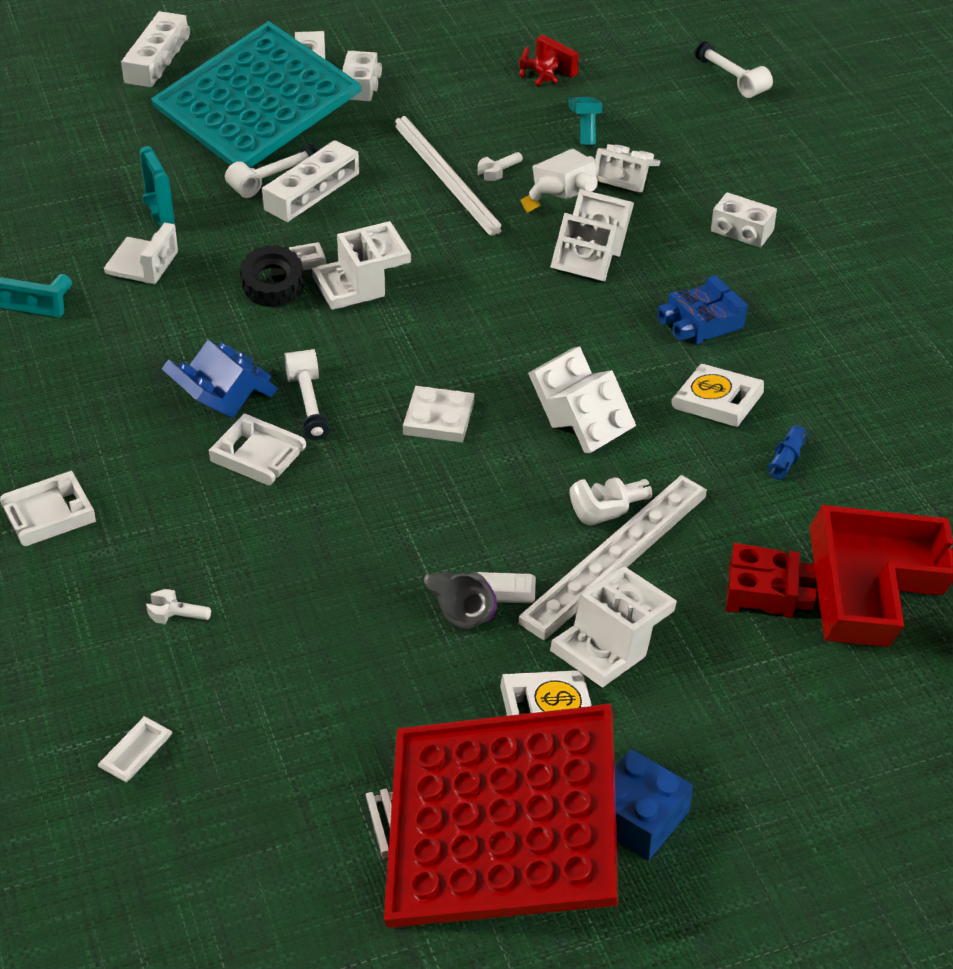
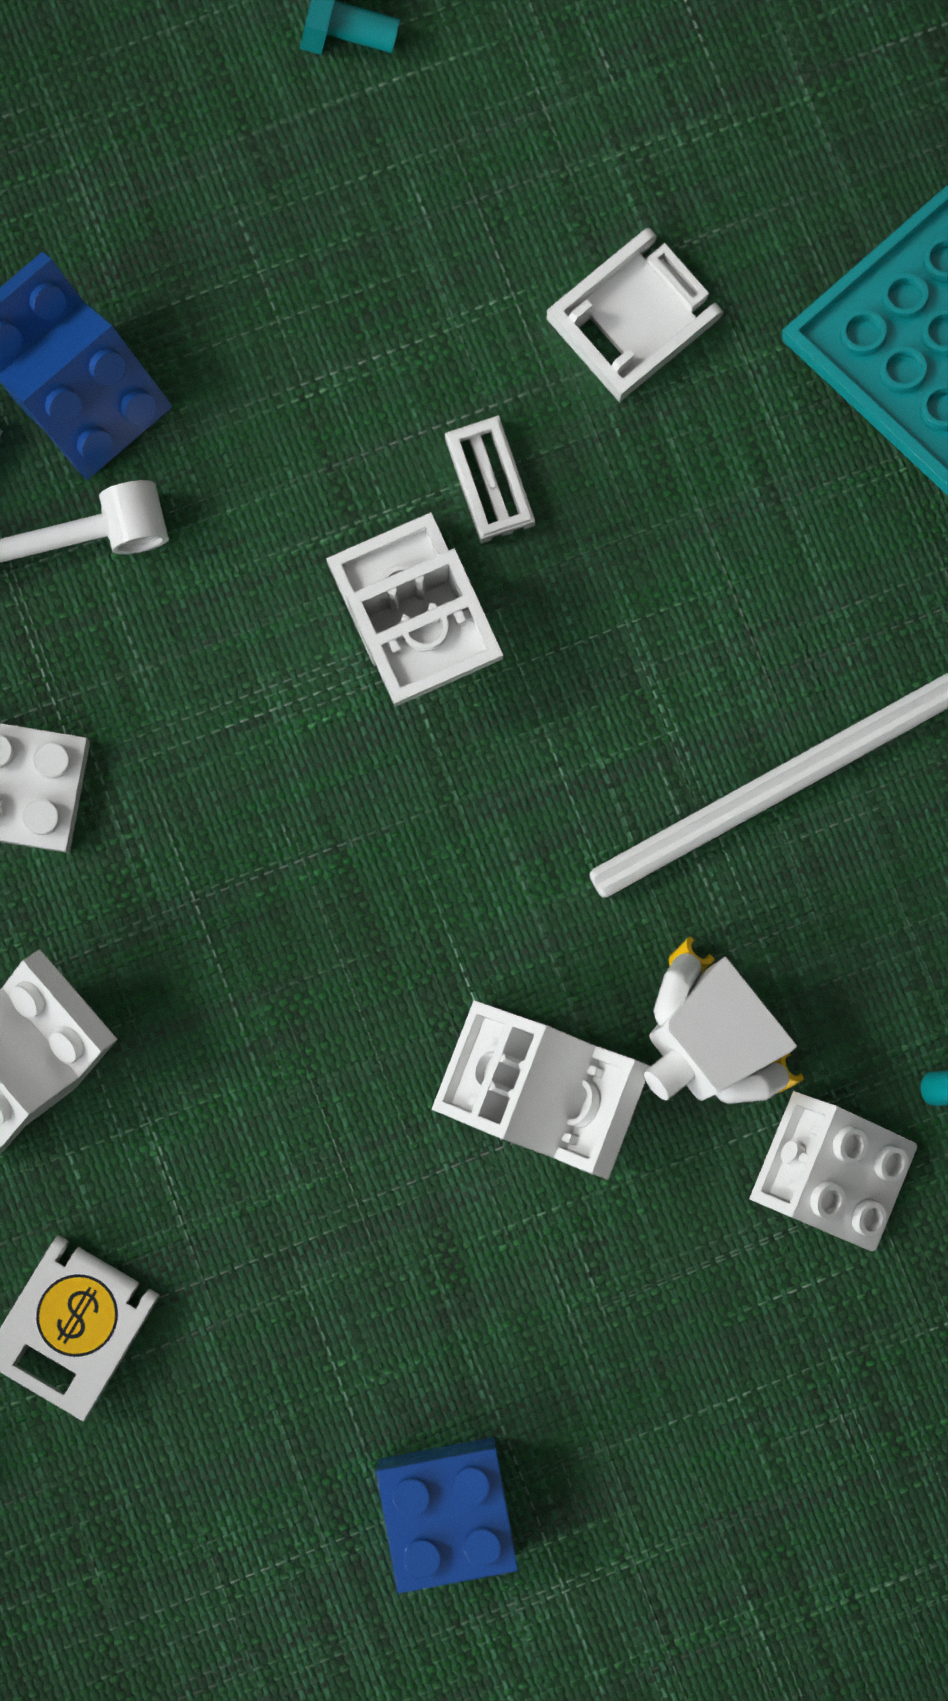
camera: 85 degrees right, 40 degrees up
(144, 259) = (466, 174): white bracket -> none
(156, 187) = (650, 168): teal container -> none
(220, 216) = (639, 308): none -> white container
(248, 180) = (738, 350): white piece -> none
(266, 258) = (370, 404): black tyre -> none
(310, 181) = (748, 516): white brick -> none
(494, 169) = (836, 888): white bar -> none
(703, 311) = (315, 1291): blue hips -> none
(743, 219) = (648, 1428): white brick -> none
(792, 272) = (446, 1515): none -> blue brick

